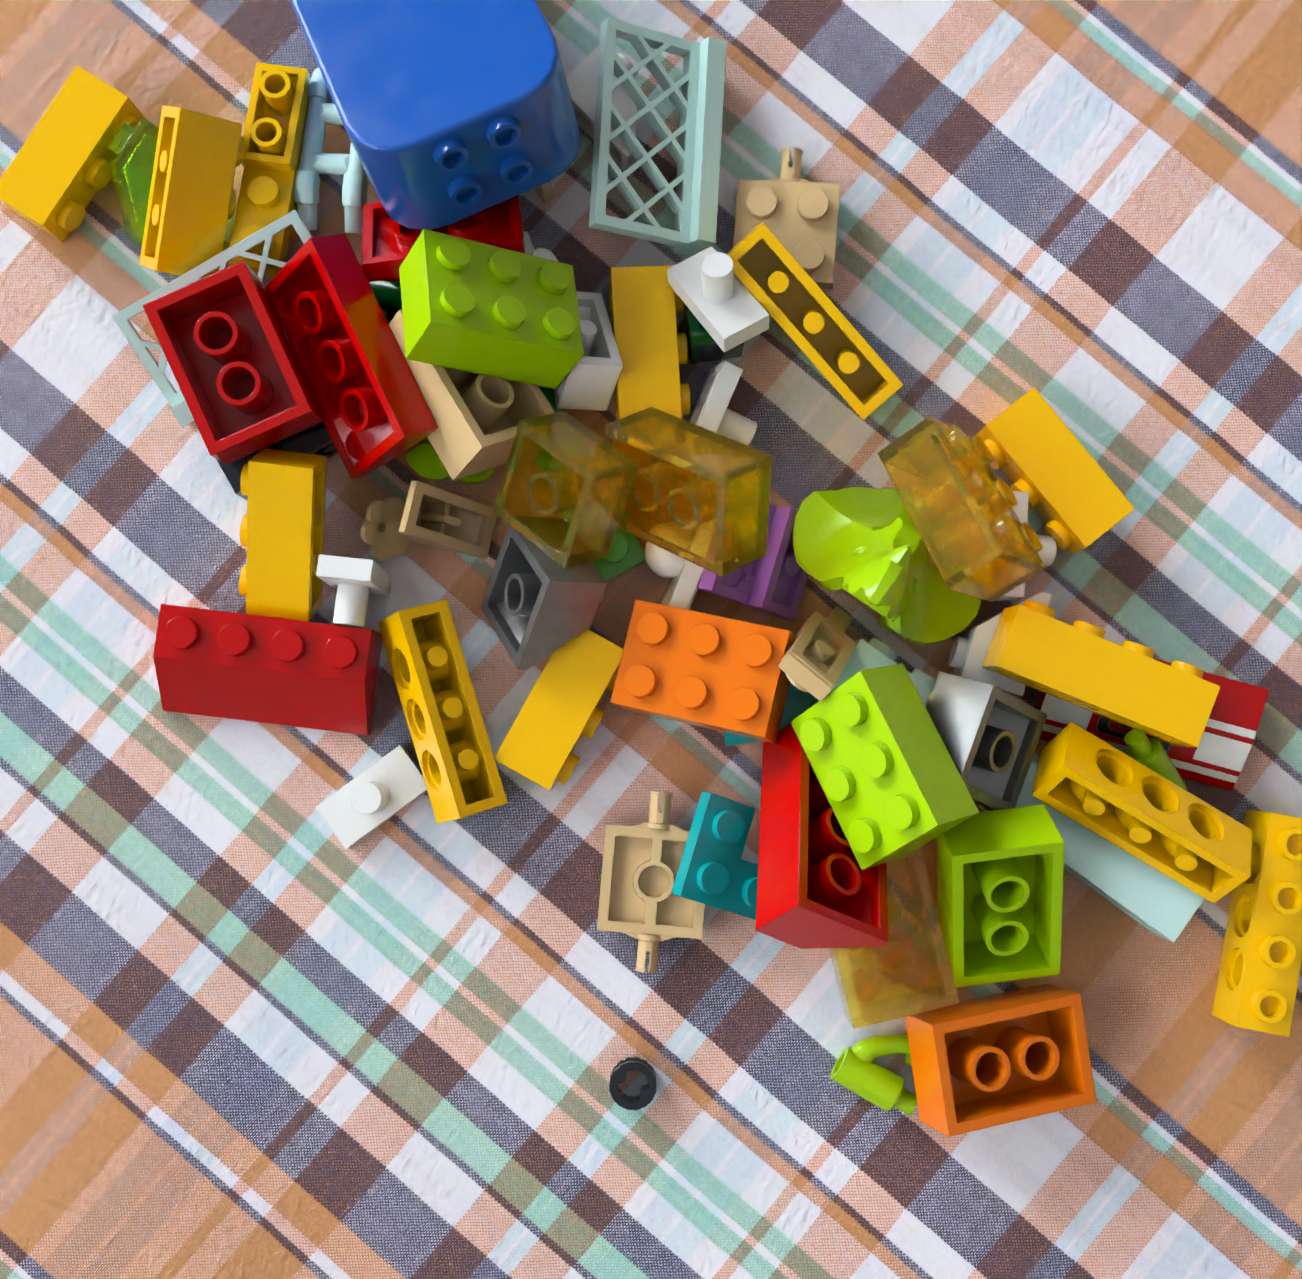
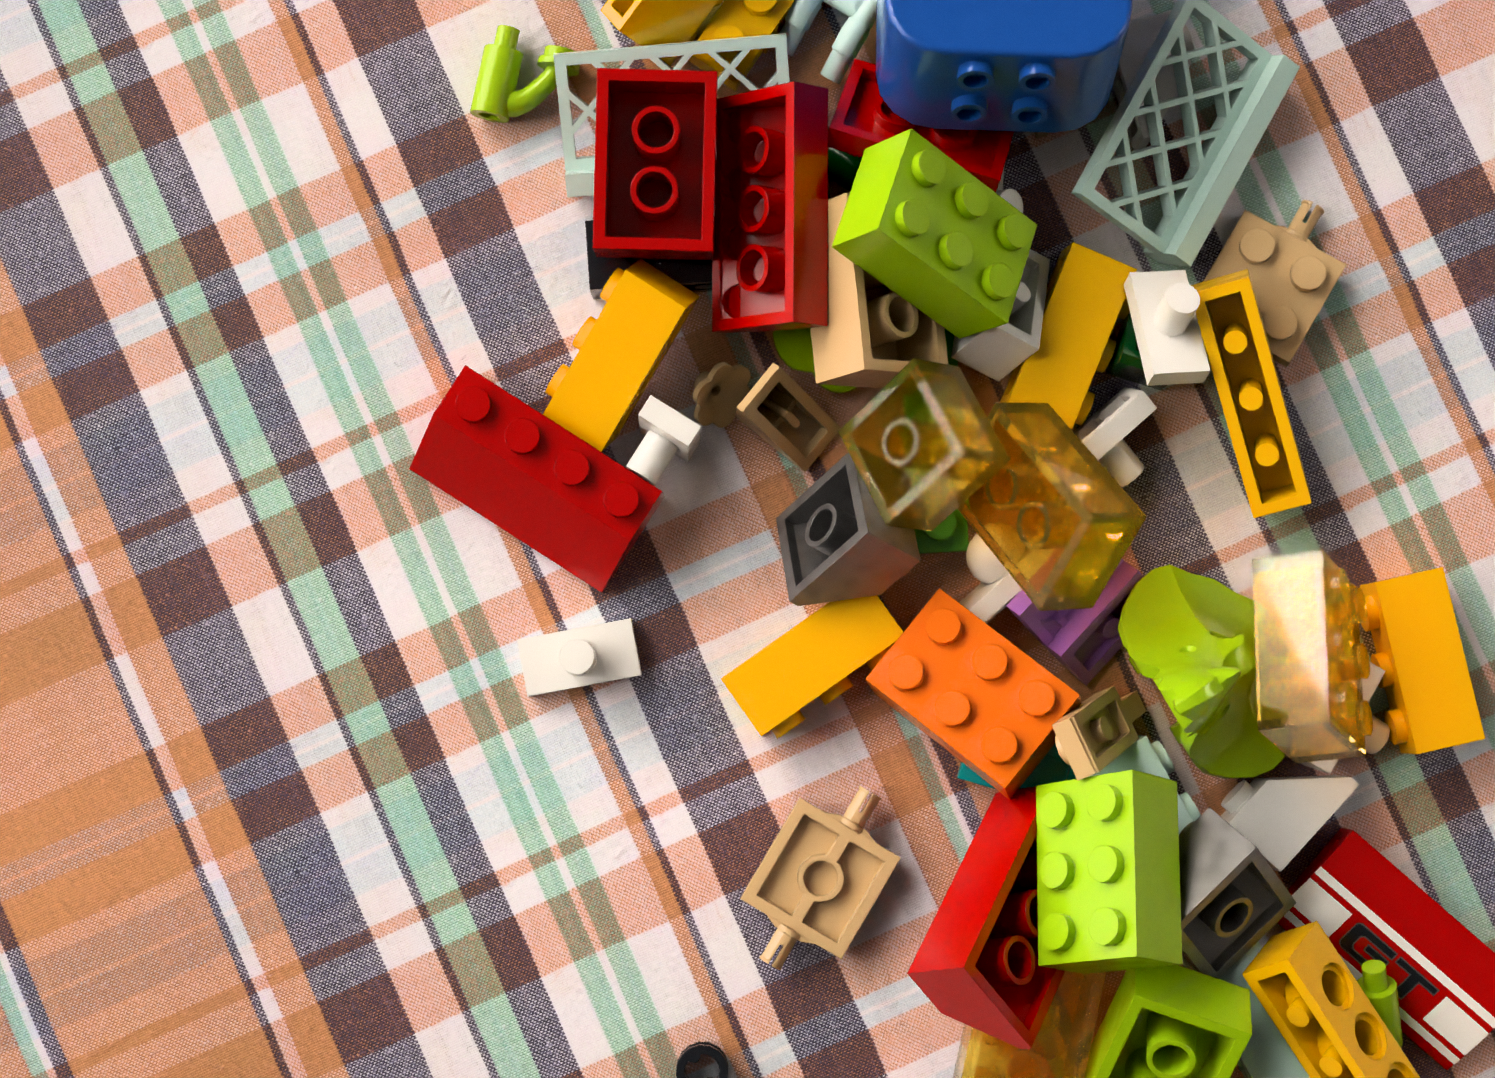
camera: 20 degrees right, 0 degrees up
(84, 357) = (498, 75): none -> lime plant
(442, 711) = (691, 606): yellow brick -> none
(712, 860) = (889, 888): teal plate -> none
(1101, 675) = (1369, 889): yellow brick -> none

